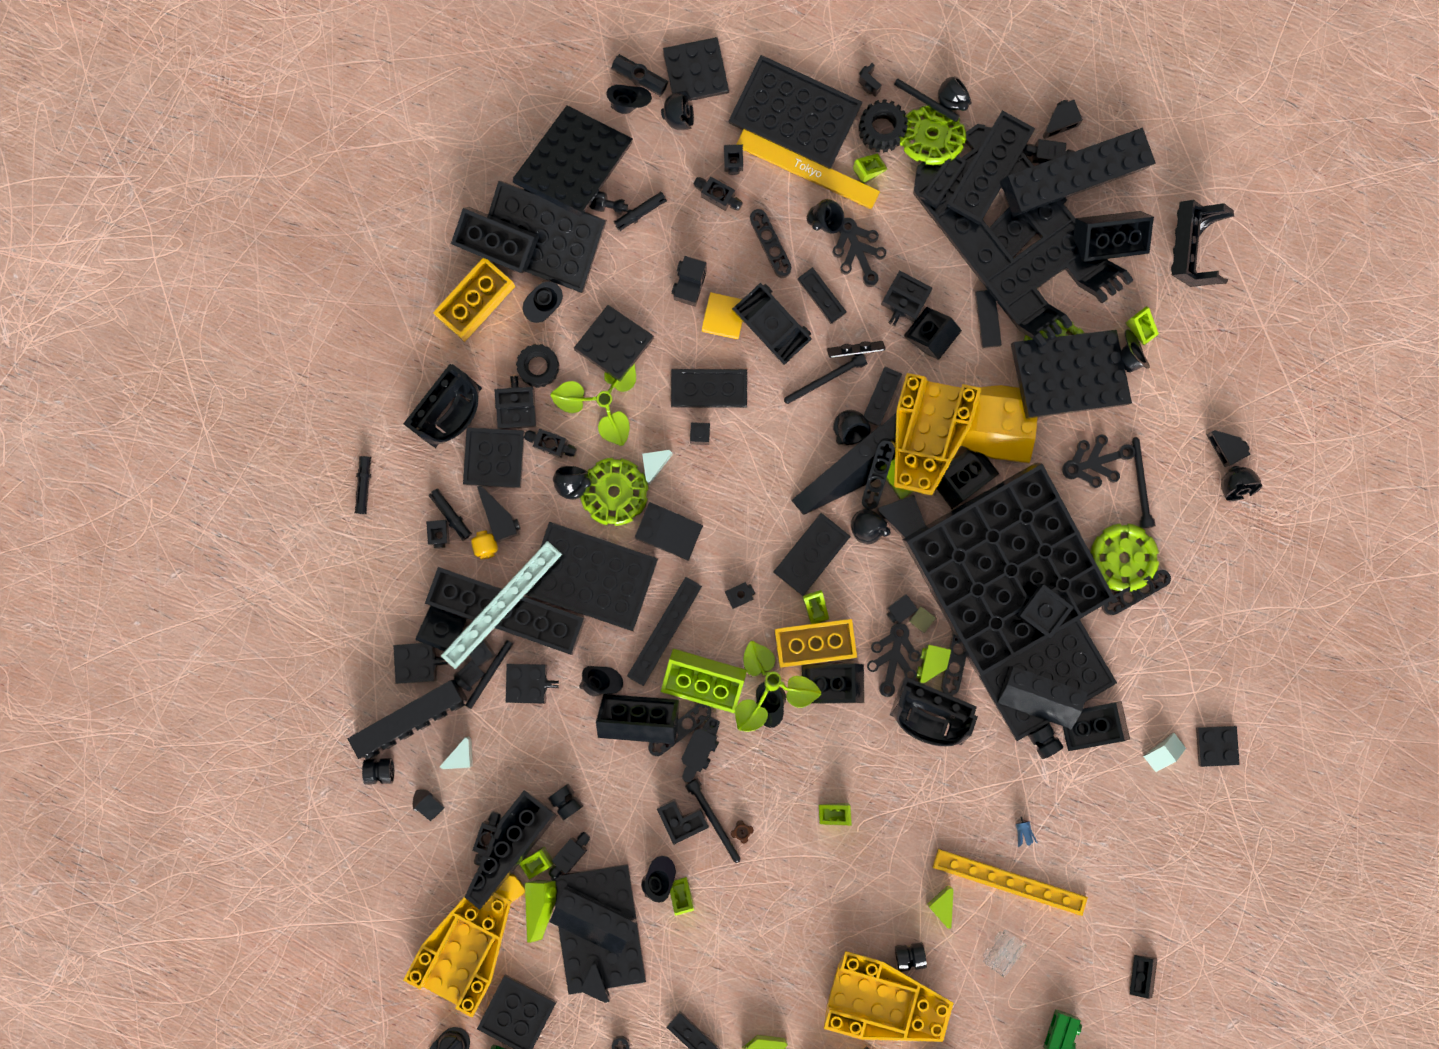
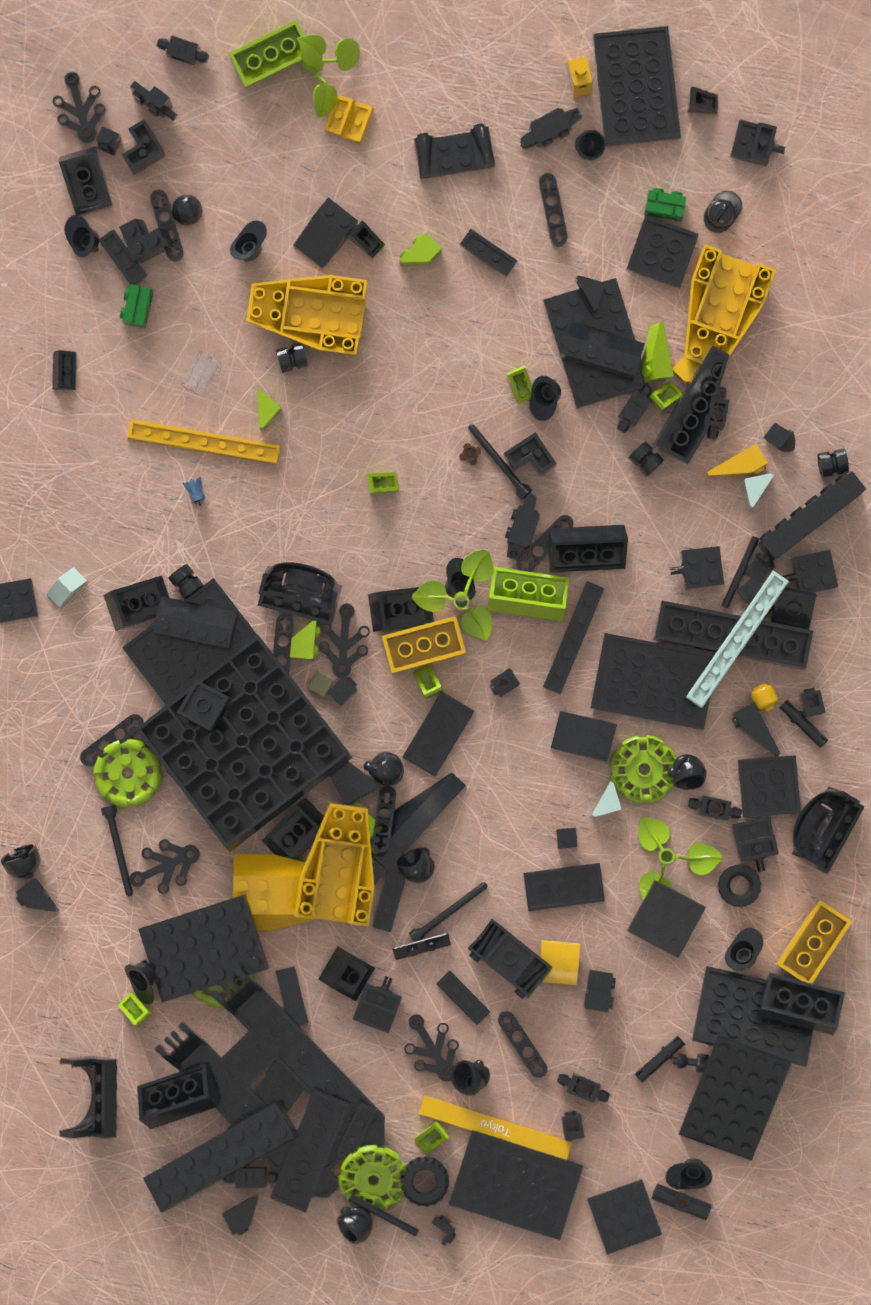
camera: 170 degrees right, 0 degrees up
(467, 783) = (742, 464): none -> yellow slope
(600, 680) = (629, 580): black piece -> none
(678, 112) = (635, 1167): black cylinder -> none

